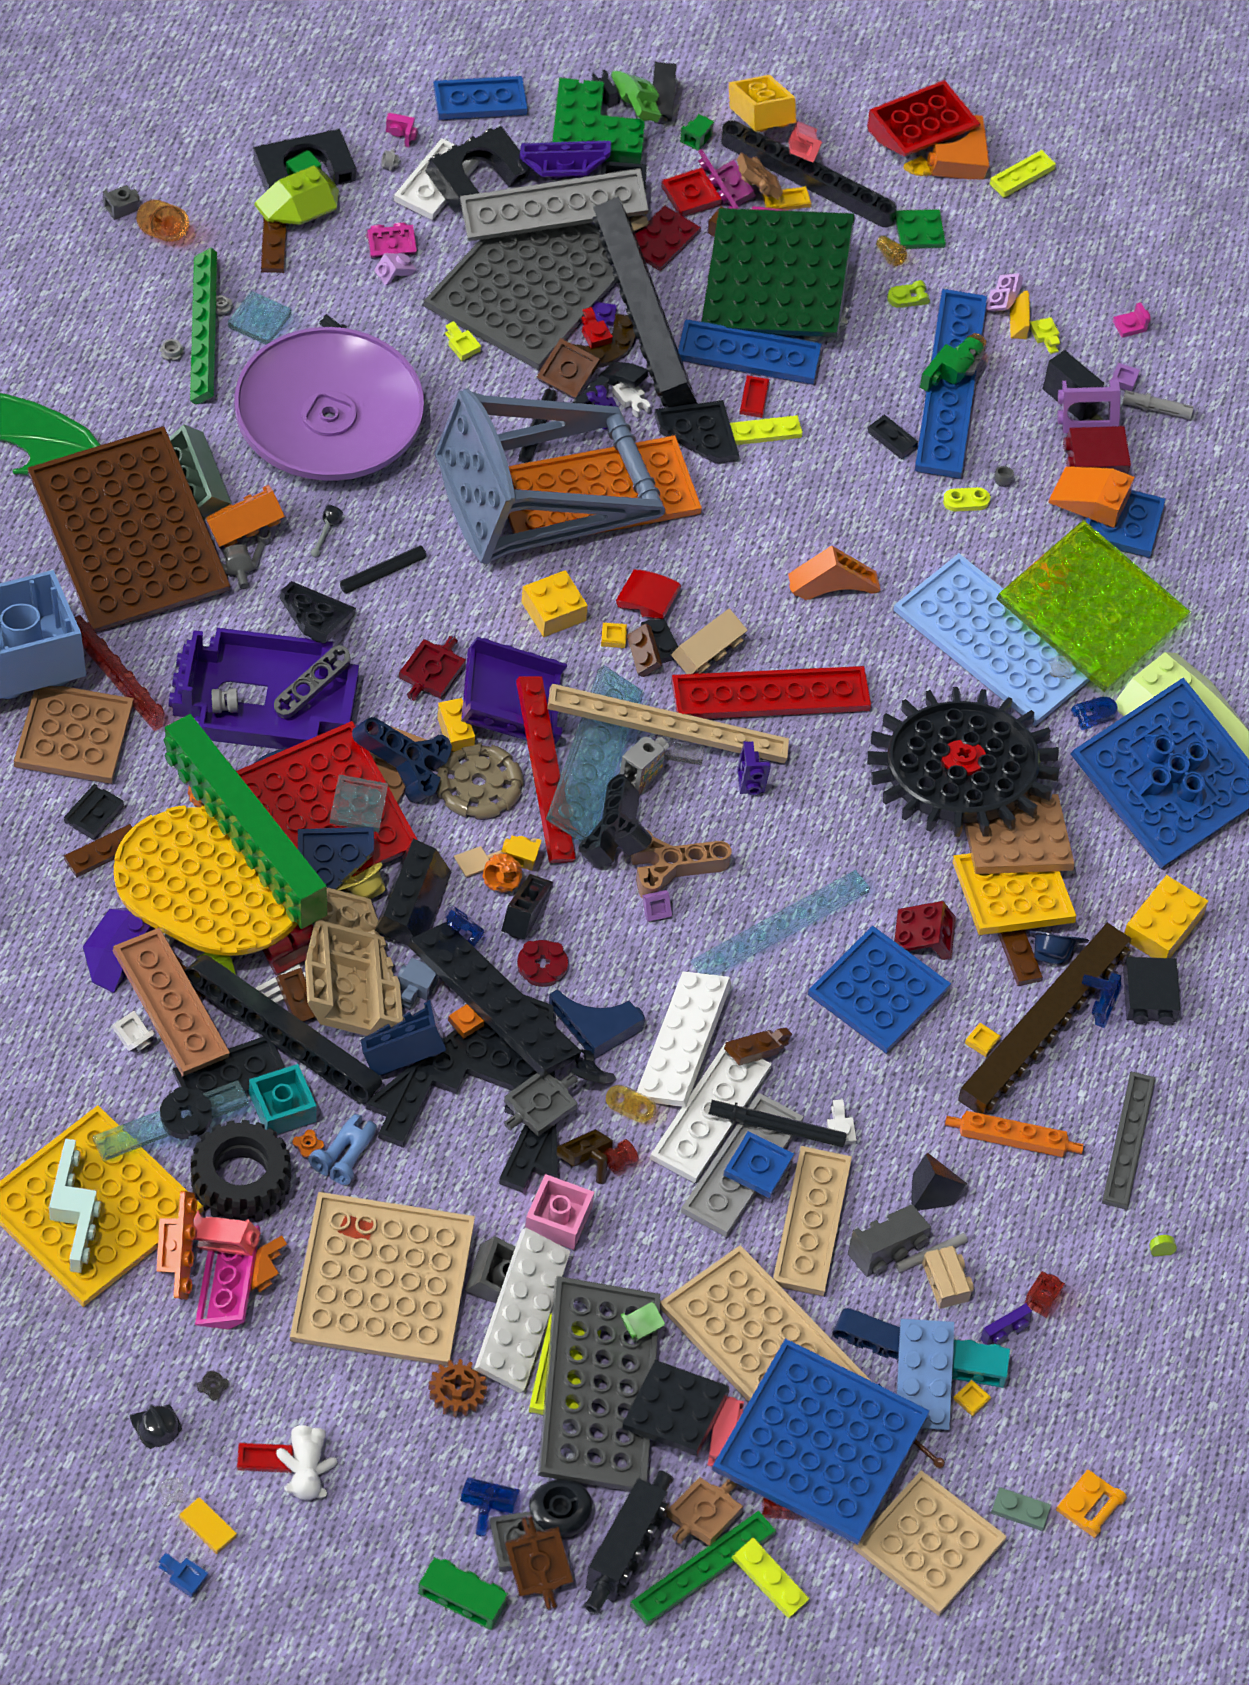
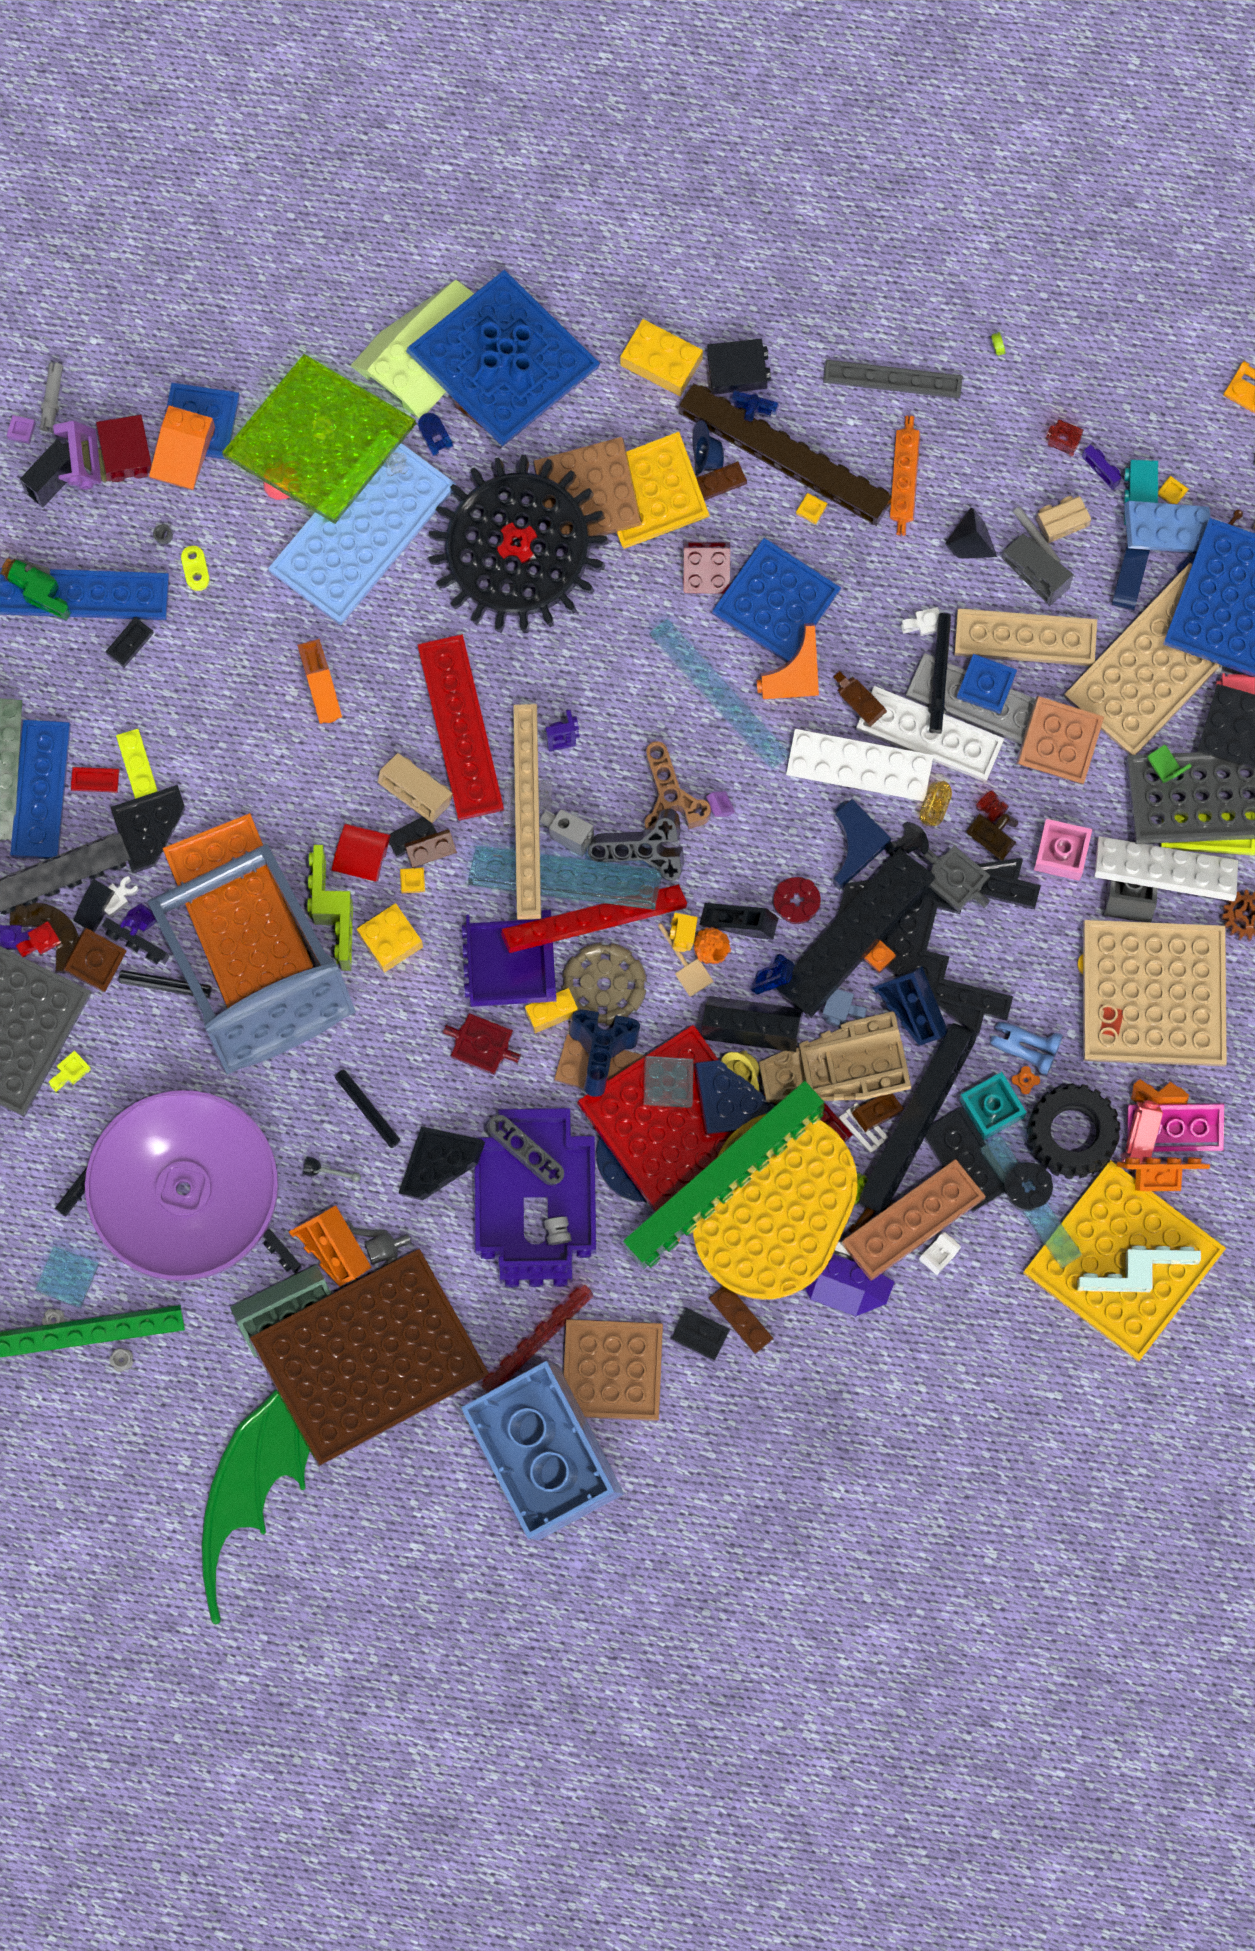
camera: 90 degrees left, 20 degrees up
(250, 481) = (287, 1260): none -> black plate
(596, 548) = (331, 907): none -> lime bracket
(685, 1226) = (1060, 740): none -> nougat plate
(792, 994) = (797, 676): none -> orange arch

